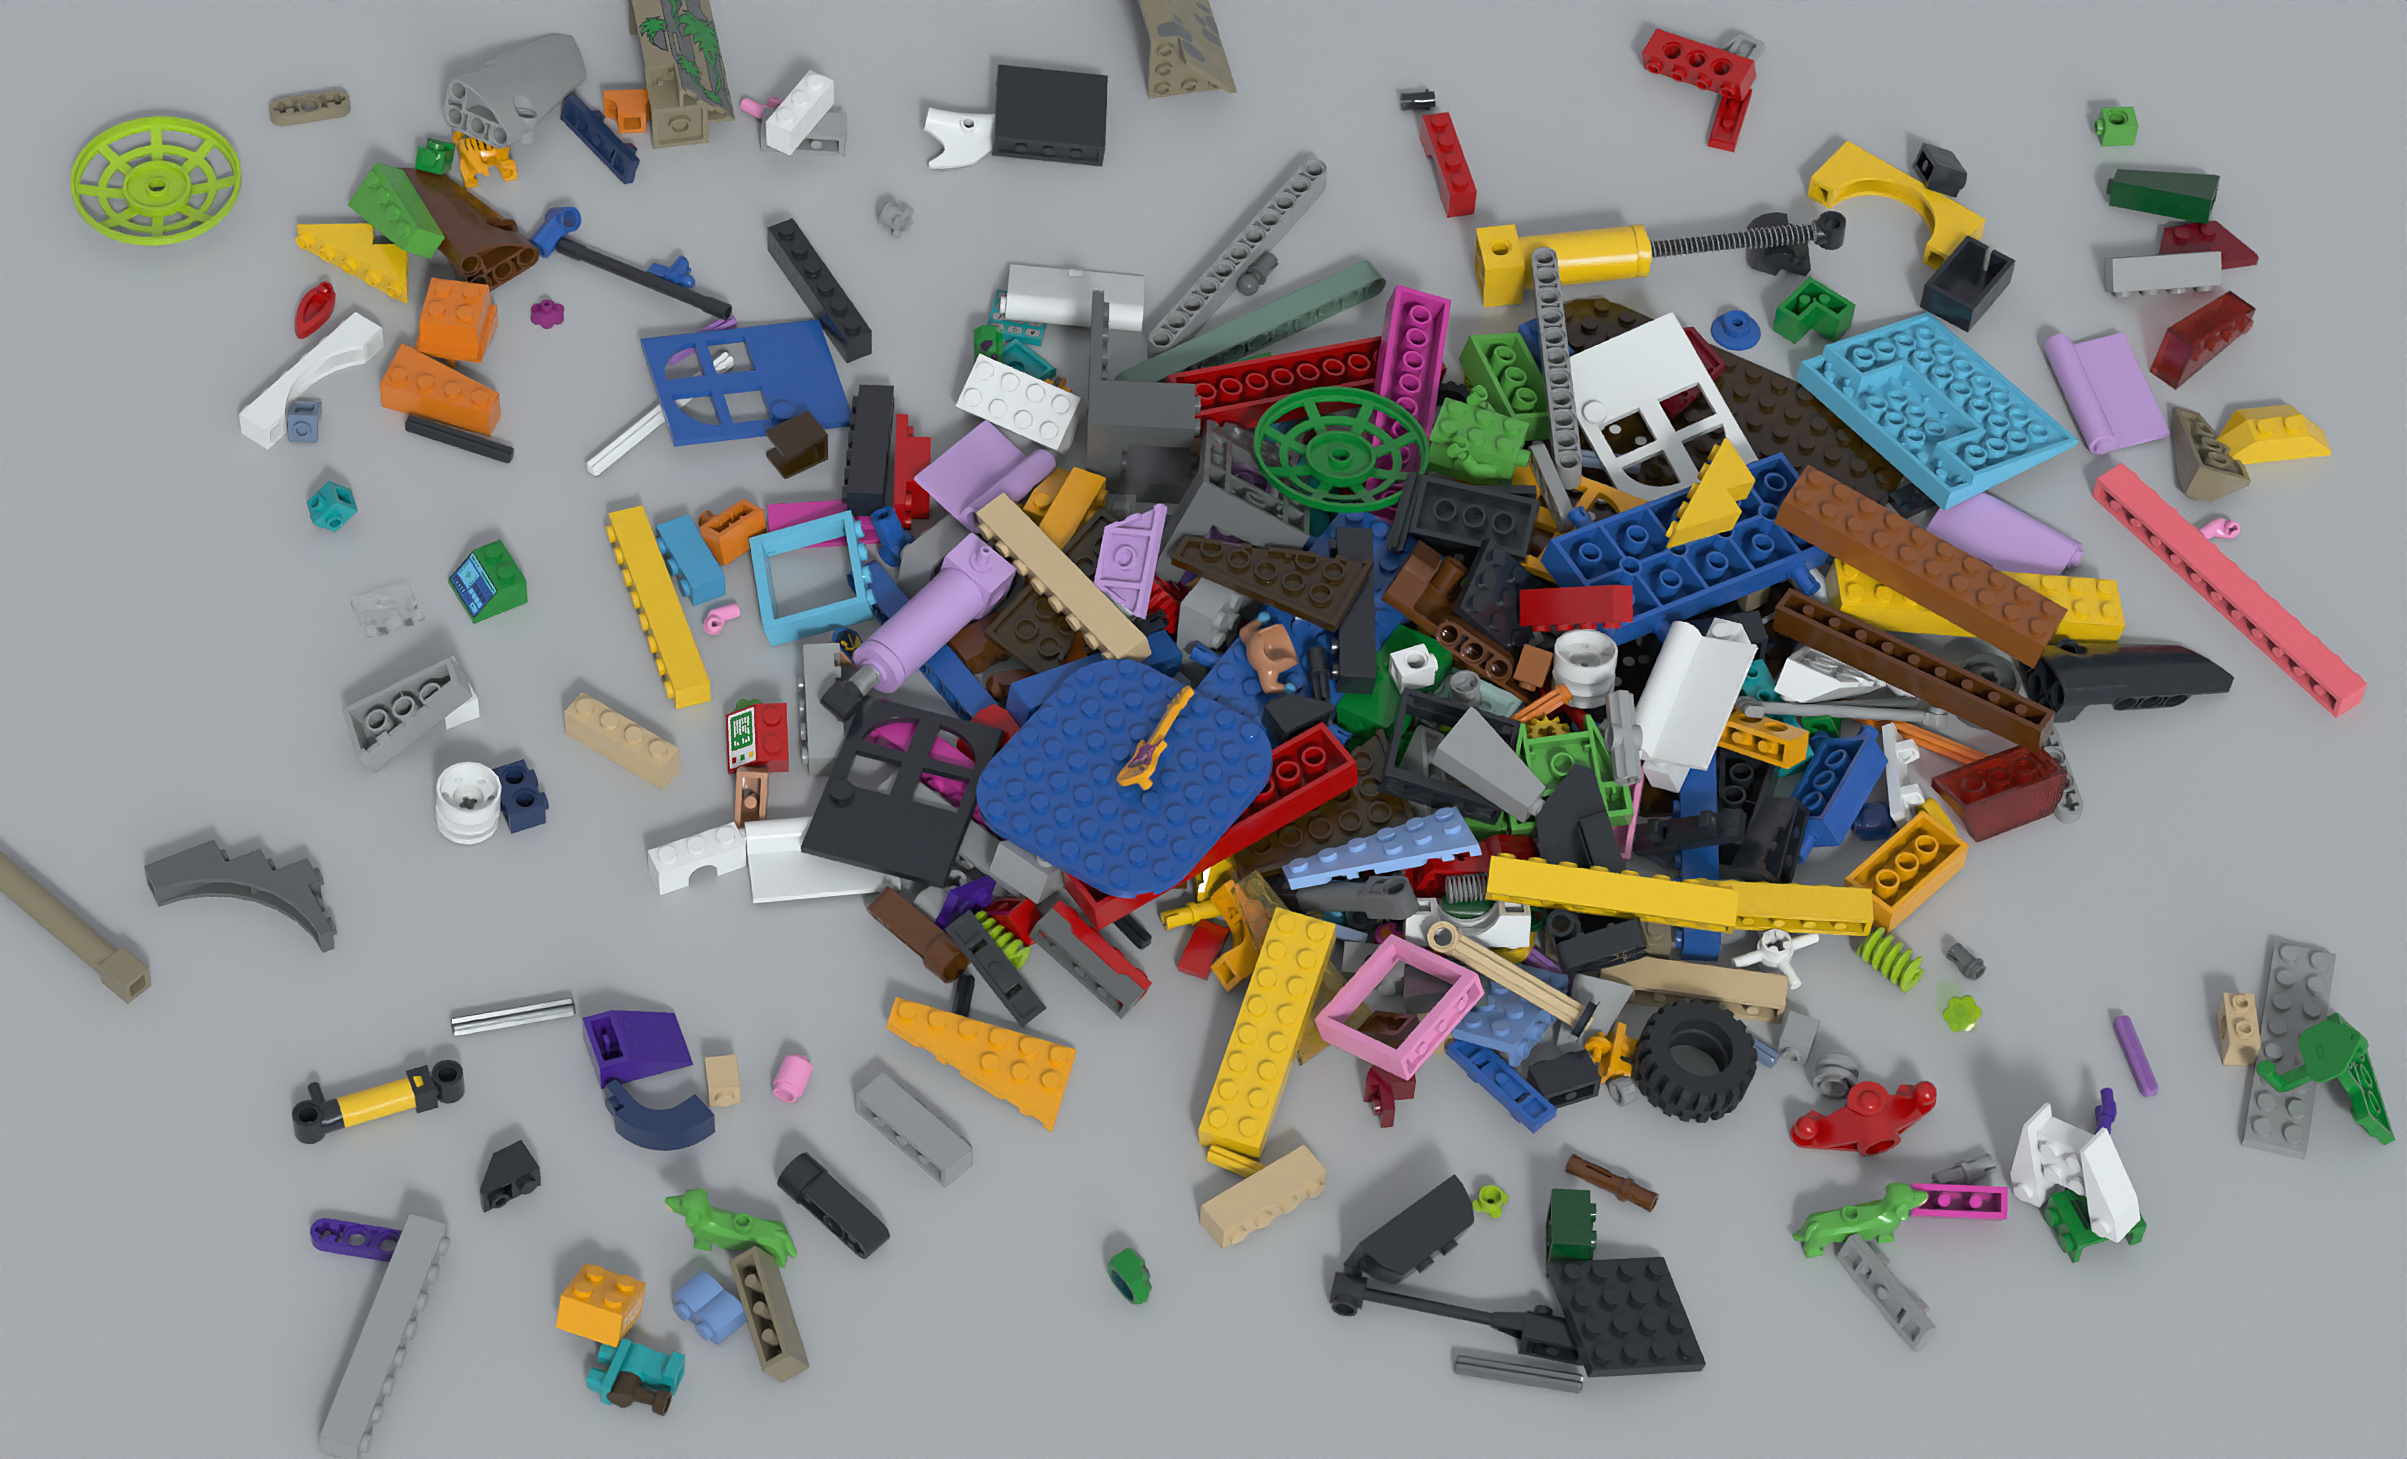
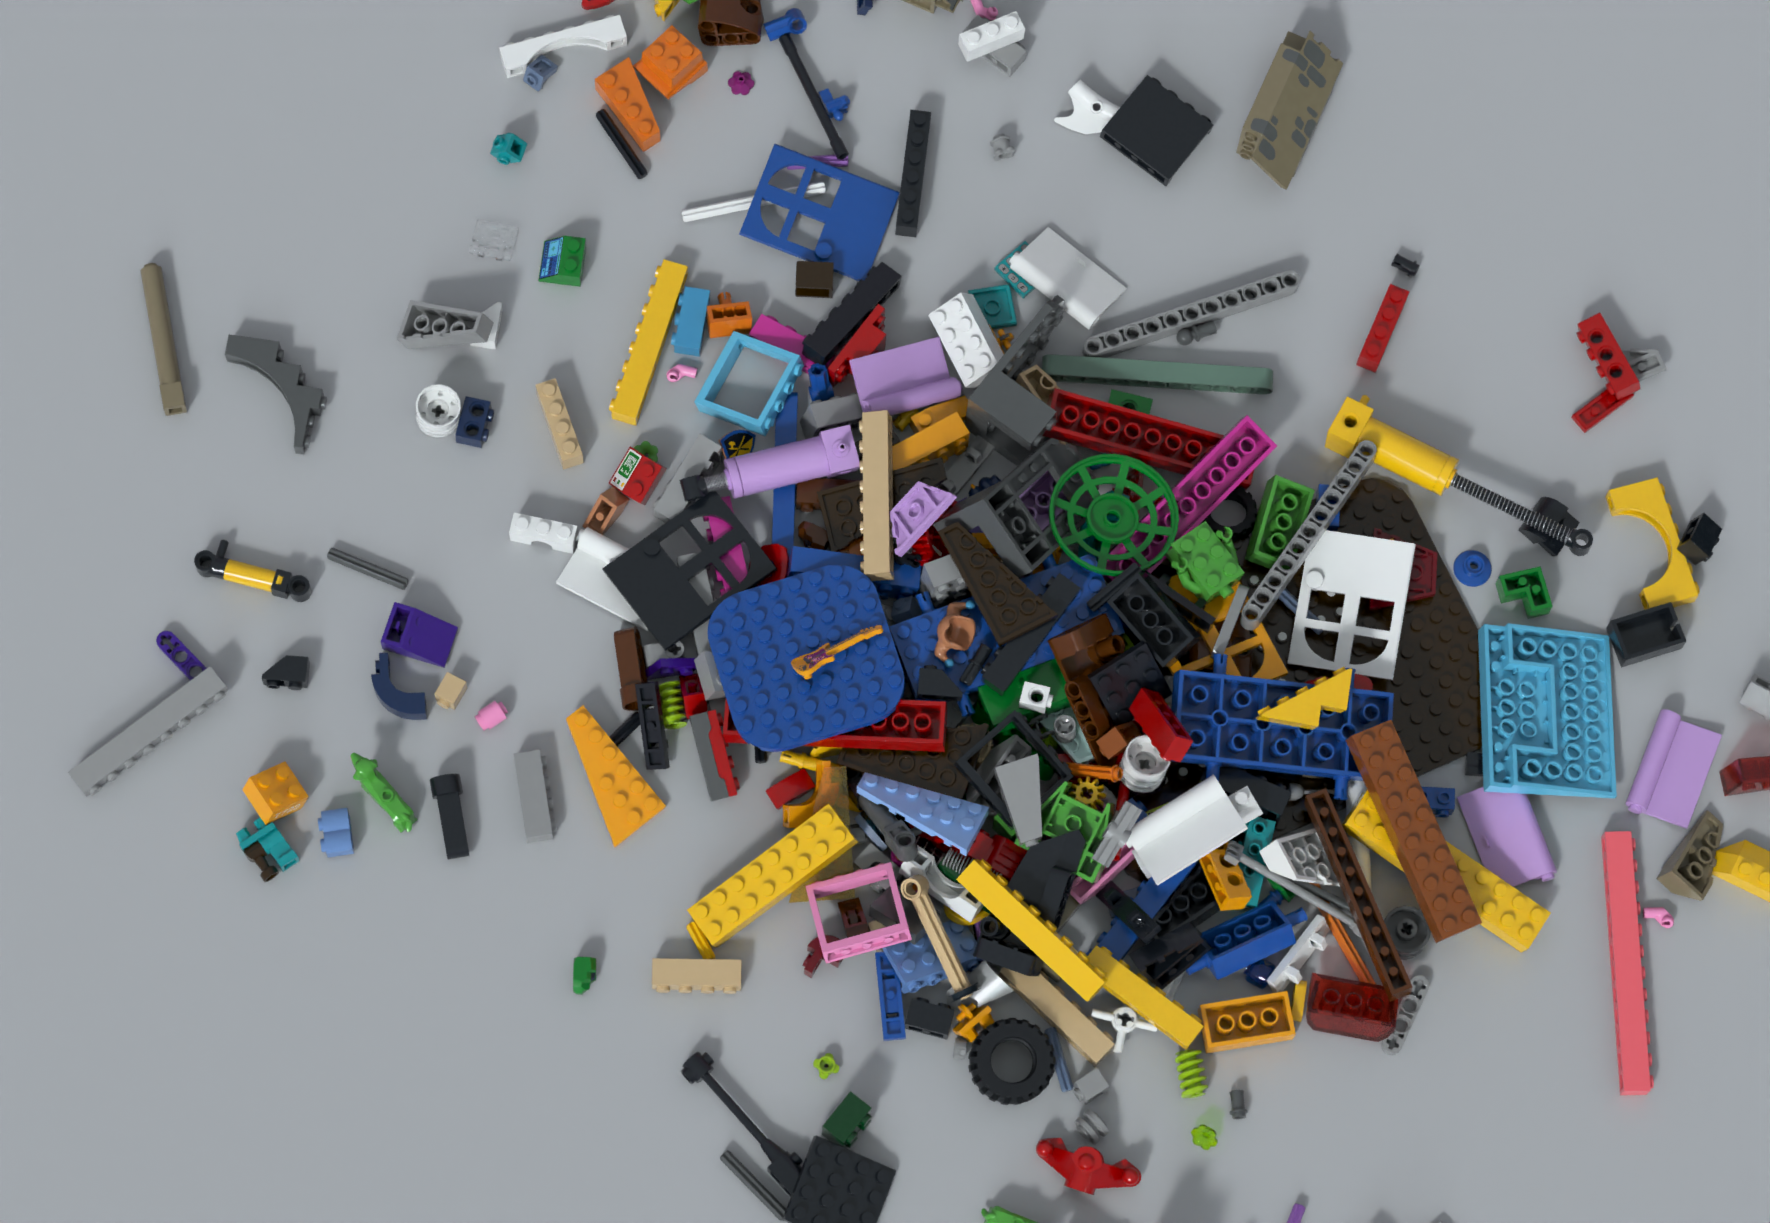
camera: 35 degrees right, 20 degrees up
(769, 1314) = (363, 860): dark tan brick -> none
(988, 342) = (982, 284): green rock -> none
(1416, 1235) = (757, 1062): black windscreen -> none
(1602, 1178) = (908, 1110): reddish brown pin -> none
(2121, 675) = (1500, 979): black panel -> none

